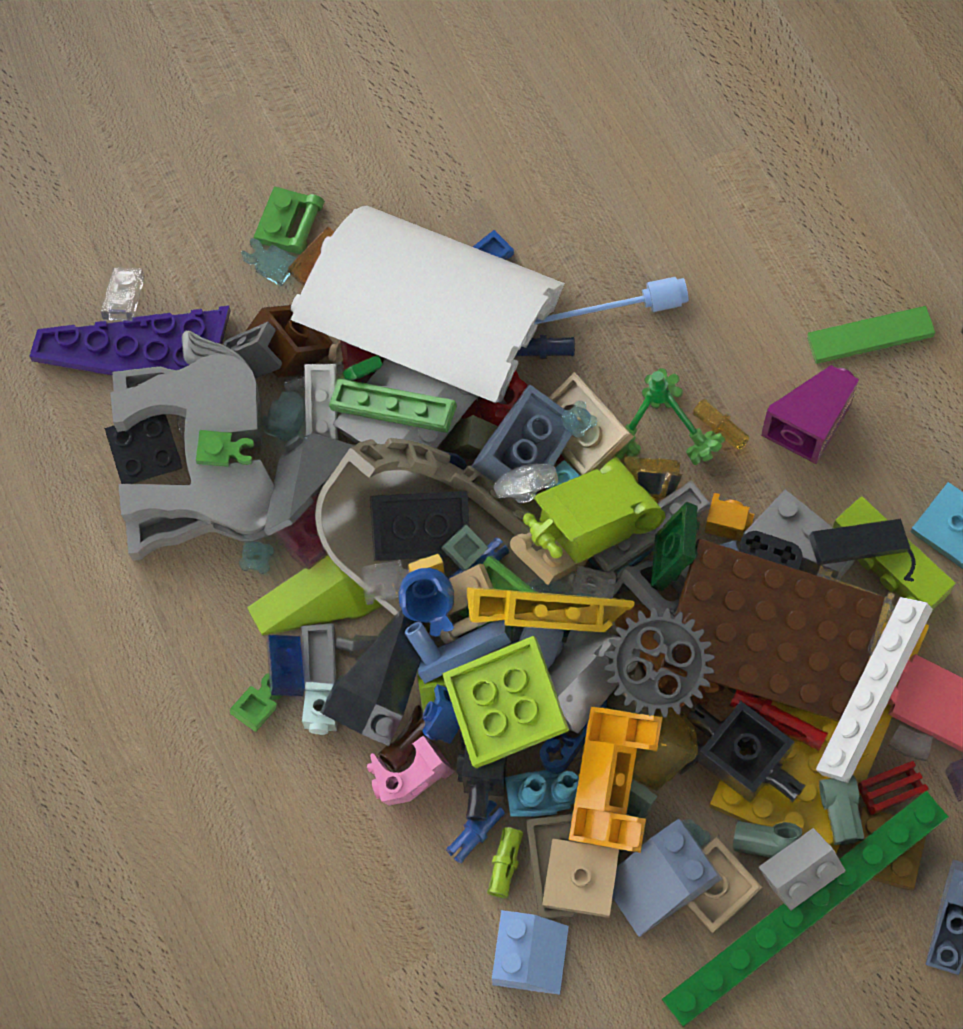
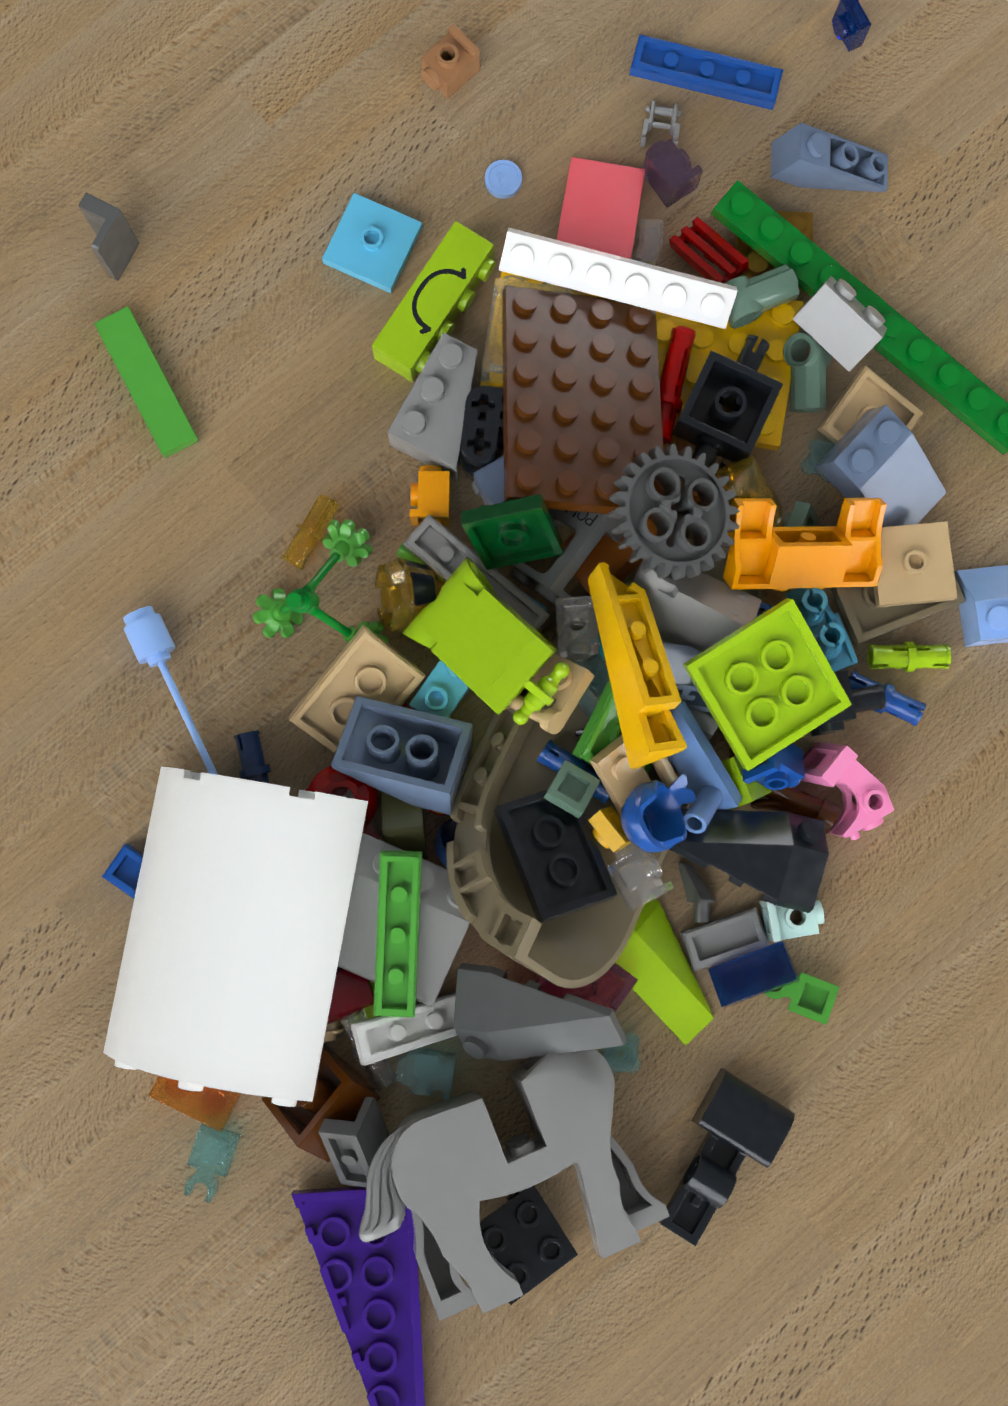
camera: 115 degrees left, 15 degrees up
(122, 294) = (306, 1345): clear plate -> none
(174, 629) = (738, 1126): none -> black plate
(217, 448) = (524, 1141): bright green plate -> none
(280, 217) = (143, 1165): bright green plate -> none
(363, 368) = (355, 986): green tile -> none
(525, 481) = (474, 732): clear dish -> none
(571, 423) = (361, 705): clear light blue plate -> none
(811, 413) = (278, 417): magenta slope -> none
(859, 541) = (439, 330): black tile -> none

